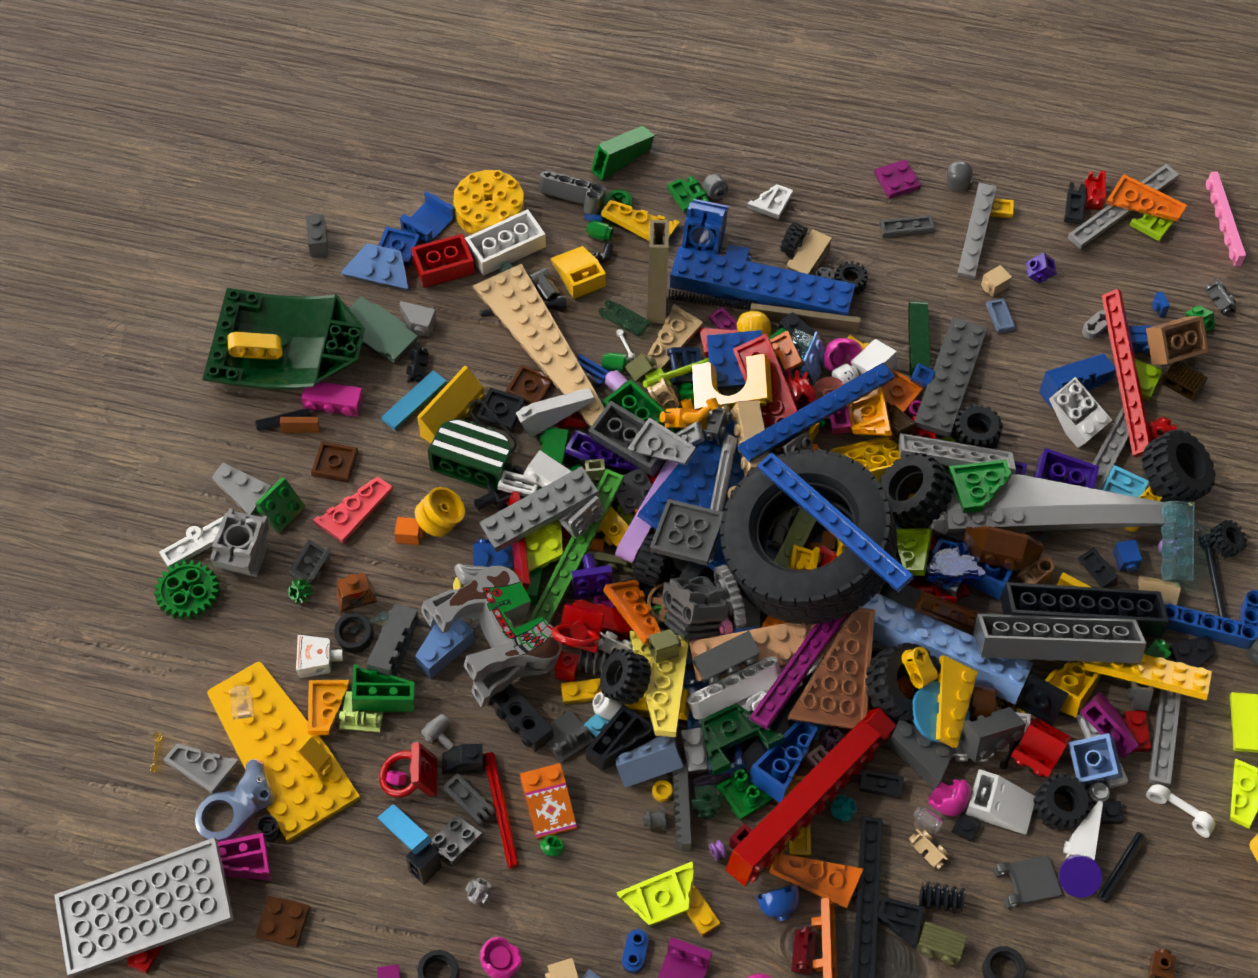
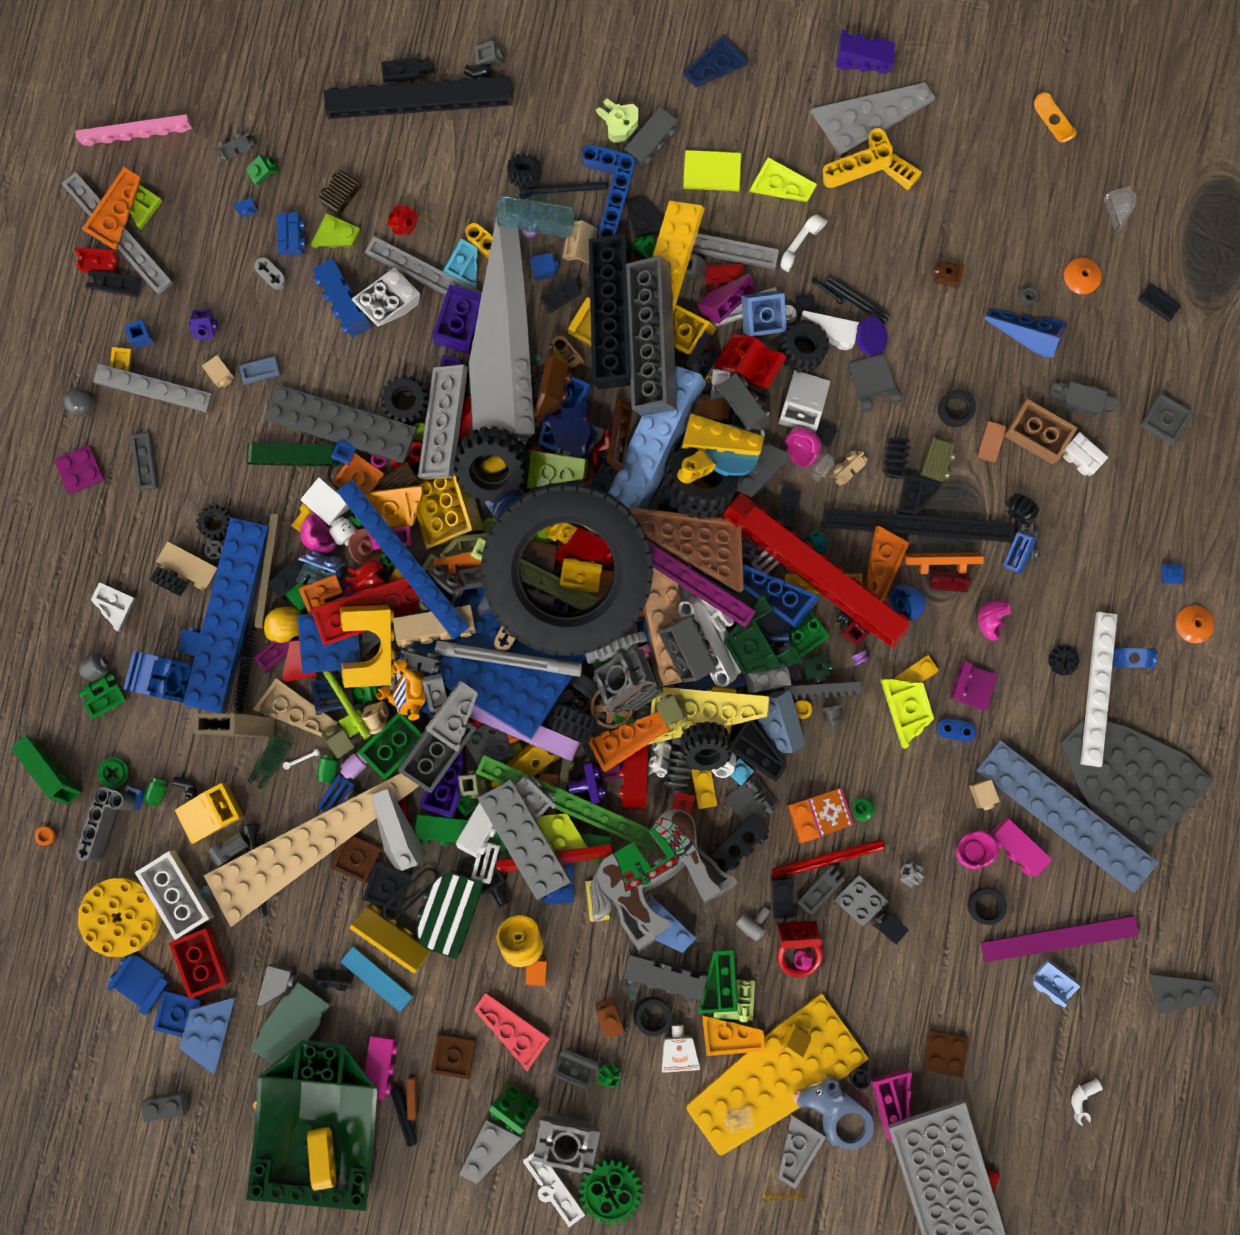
camera: 90 degrees left, 25 degrees up
(404, 829) = (863, 948): dark azure tile -> none
(564, 154) = (45, 835): none -> orange tile
(579, 628) = (655, 791): red tile -> none
(634, 220) = (148, 739): yellow wing -> none
(687, 532) = (556, 688): dark grey plate -> none
(835, 522) = (572, 541): blue plate -> none
(979, 483) = (486, 401): green plate -> none
(1027, 219) = (139, 334): none -> blue brick
(1120, 849) = (840, 300): none -> black hinge
(1126, 372) = (336, 247): plate -> none
(1177, 340) = (299, 194): medium nougat brick -> none
(1178, 467) = (454, 207): black tyre -> none

